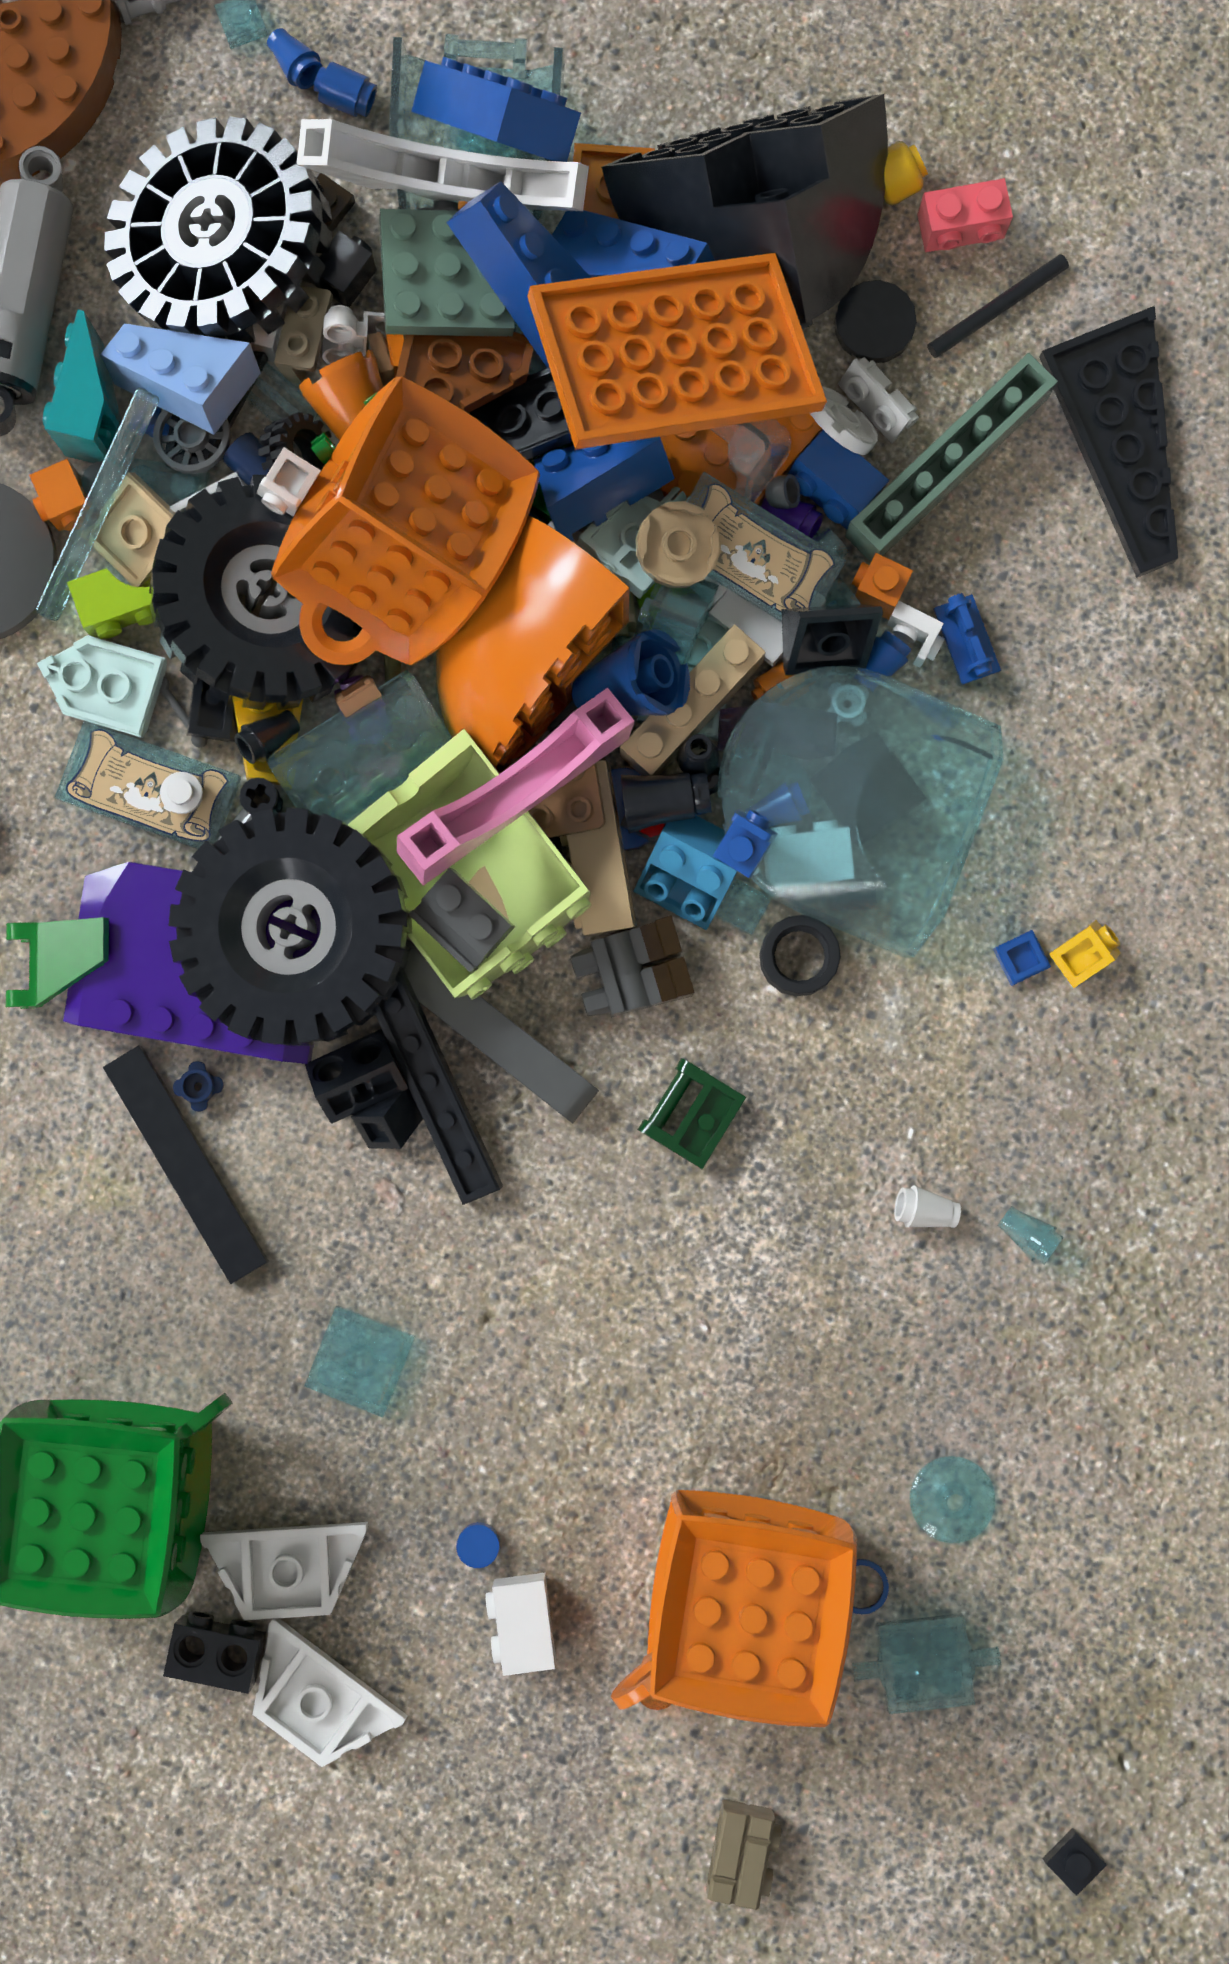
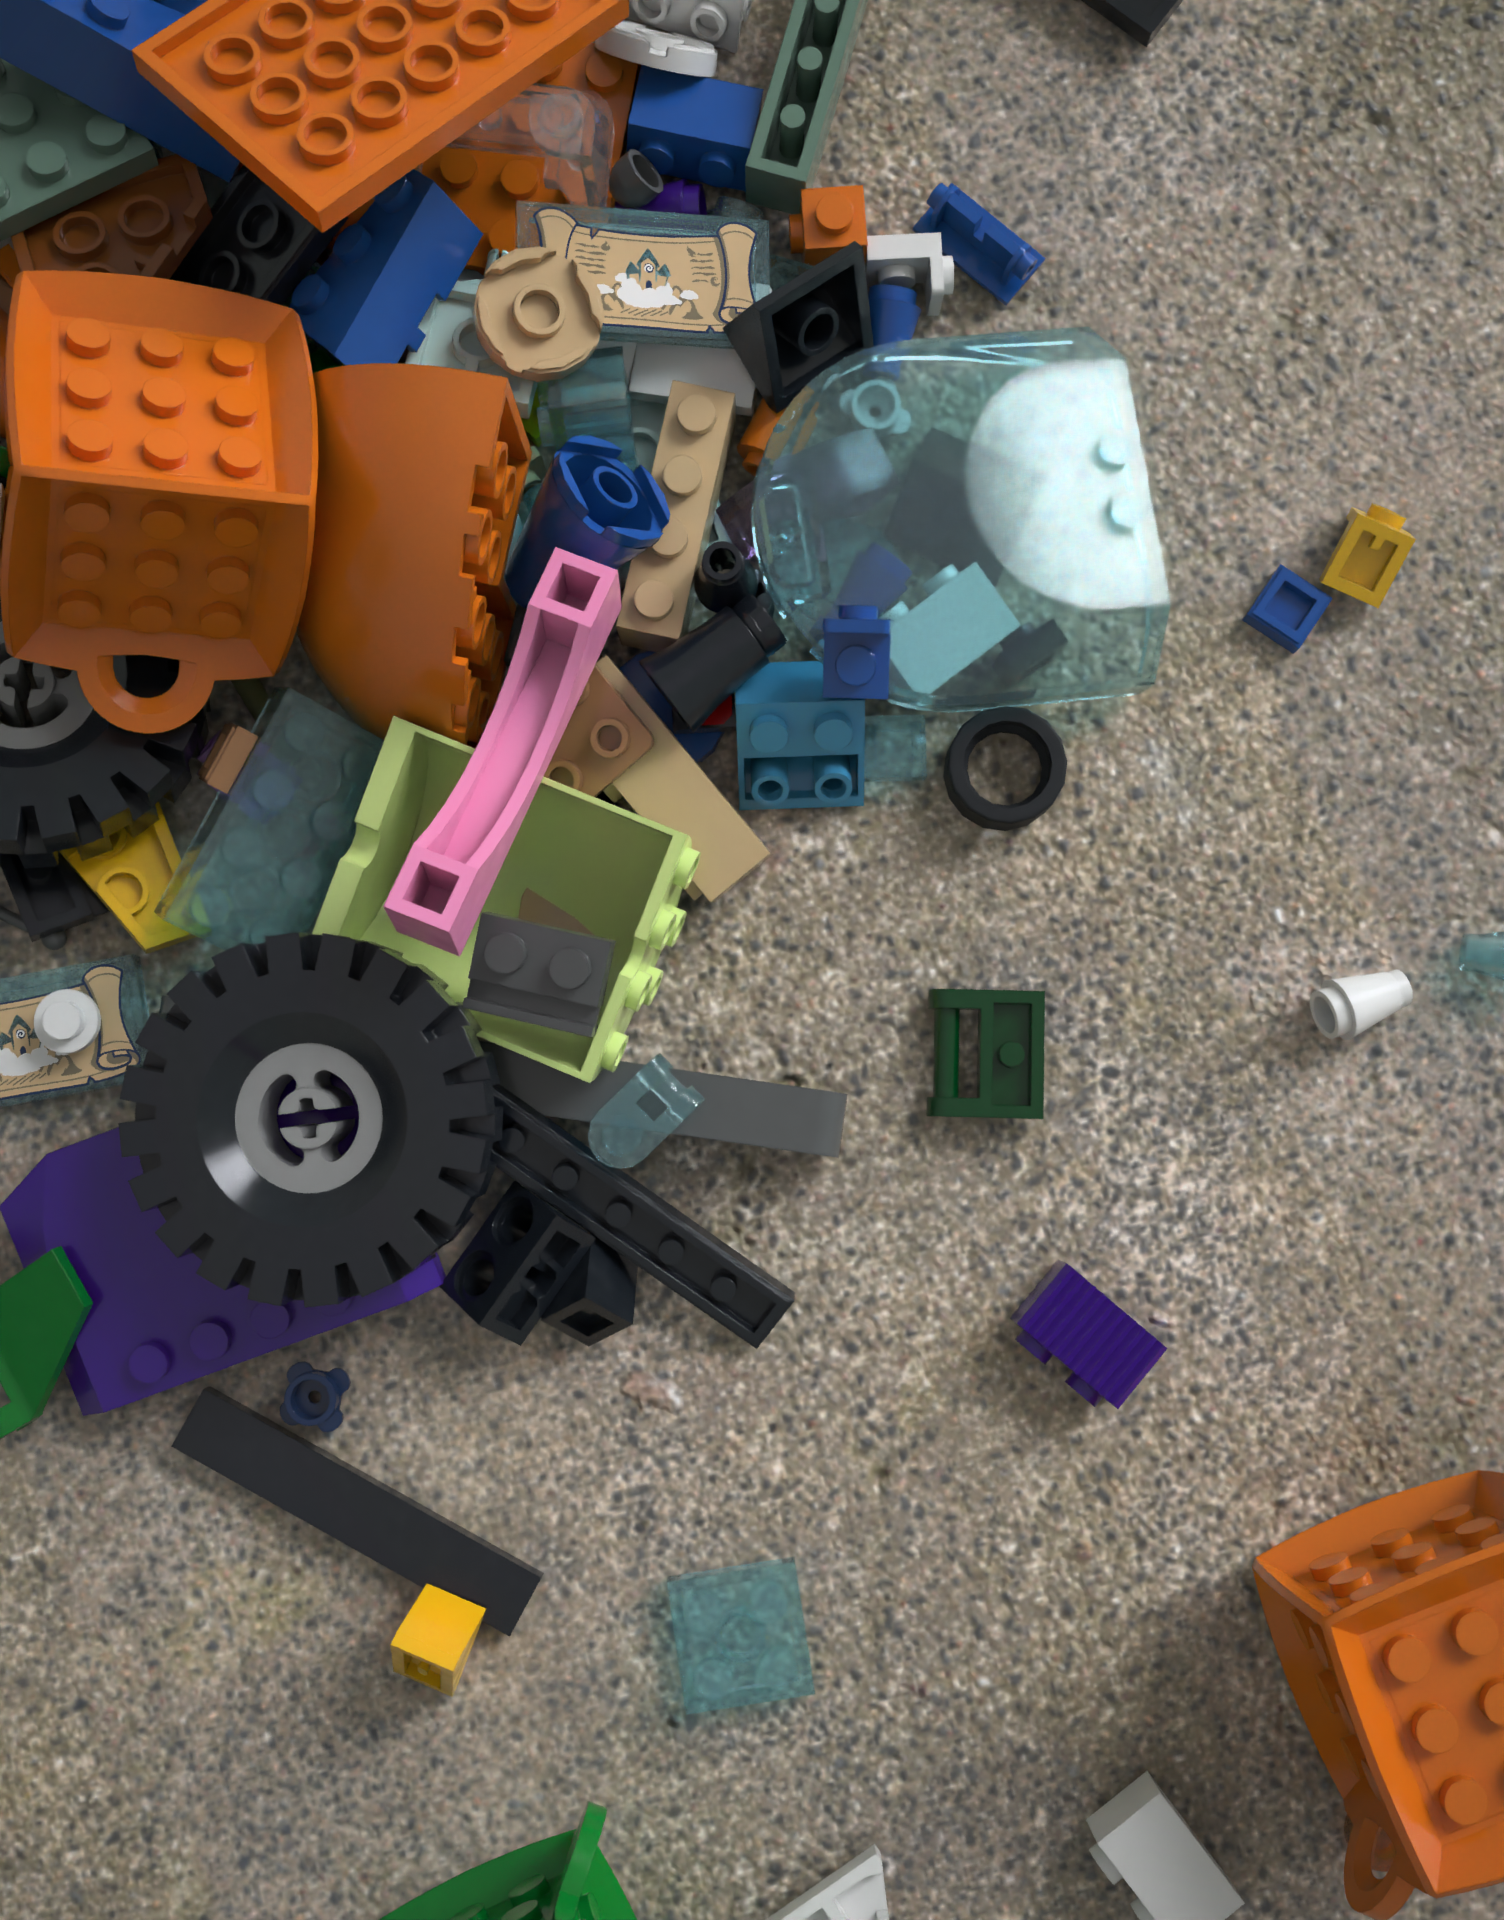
camera: 30 degrees left, 0 degrees up
(188, 1261) = (436, 1639): none -> yellow slope
(258, 787) = (168, 955): black bush -> none
(264, 737) = (135, 882): black cone -> none
(458, 1036) = (623, 1131): none -> clear light blue plate
(478, 1545) = (1038, 1787): blue tile -> none
(620, 969) = (788, 926): dark grey hips -> none
(655, 1307) = (1087, 1334): none -> dark purple brick

